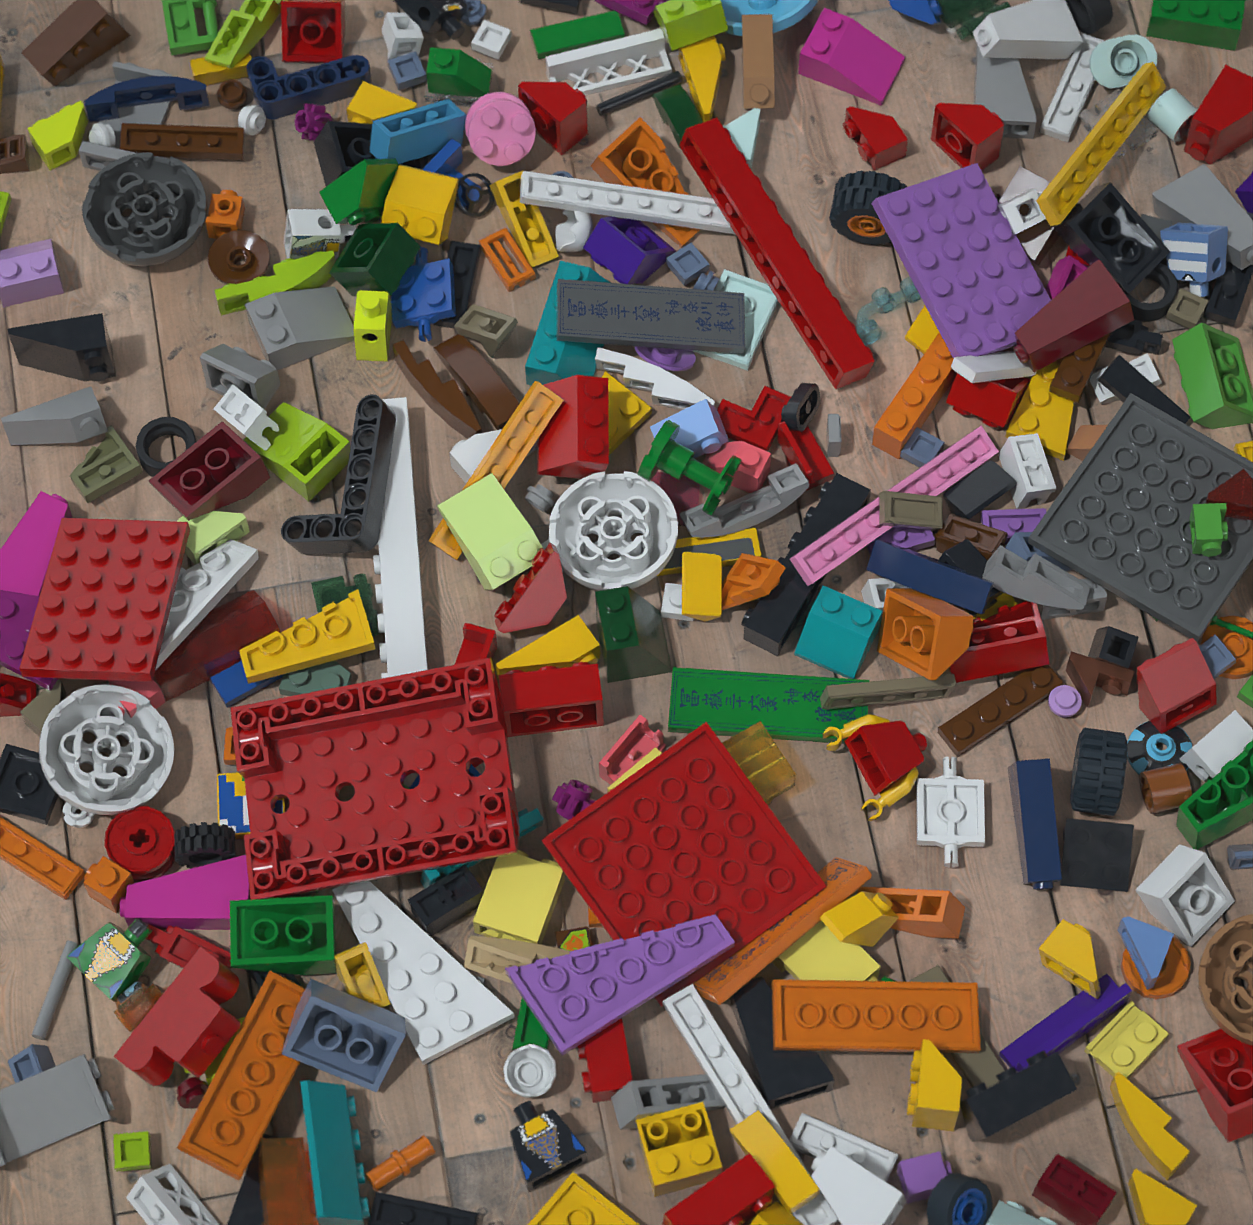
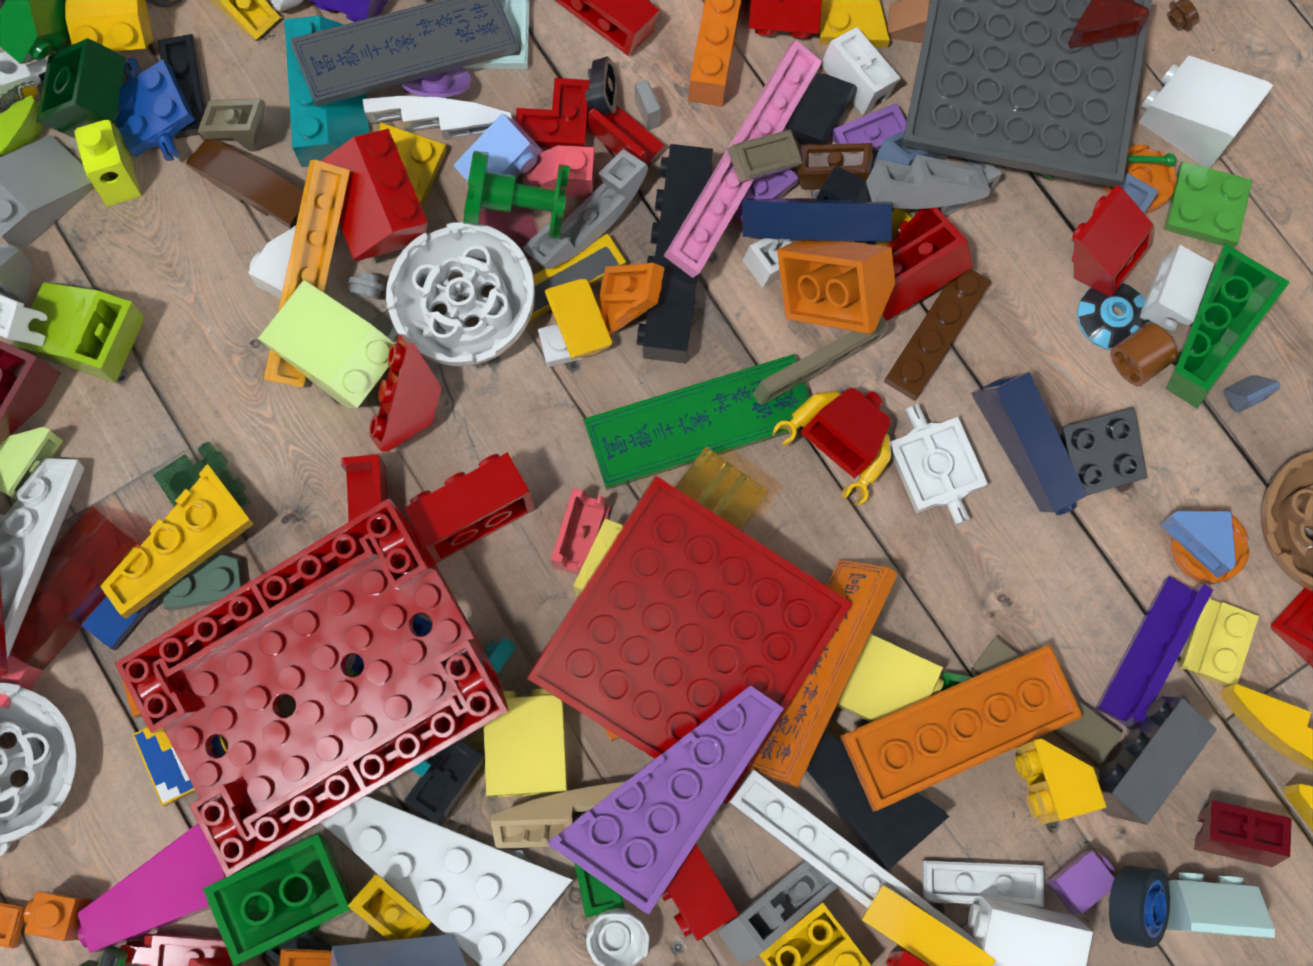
camera: 25 degrees left, 10 degrees up
(132, 827) = (63, 832): red wheel -> none
(204, 844) = (149, 828): black tyre -> none
(364, 483) = (167, 349): black beam -> none
(400, 560) = (232, 395): white brick -> none
(443, 398) = (215, 214): reddish brown slope -> none
(519, 279) = (247, 56): orange tile -> none
(558, 648) = (455, 448): yellow slope -> none
(572, 798) = (539, 609): magenta gear -> none
(573, 938) = (605, 768): tile -> none
(630, 635) = (525, 402): dark green slope -> none
(838, 632) = (742, 315): teal slope -> none
(861, 918) = (902, 625): yellow slope -> none
(921, 448) = (743, 86): sand blue plate -> none
(924, 911) = (945, 590): orange slope -> none
(1064, 701) = (1000, 300): lavender plate -> none
(1071, 955) = (1133, 574): yellow slope -> none
(1090, 672) = (1014, 262): copper slope -> none
(1098, 771) = (1077, 364): black wheel -> none
(1113, 646) = (1029, 226): black brick -> none
(1185, 894) = (1210, 458): white slope -> none
(1208, 528) = (1087, 62): bright green brick -> none

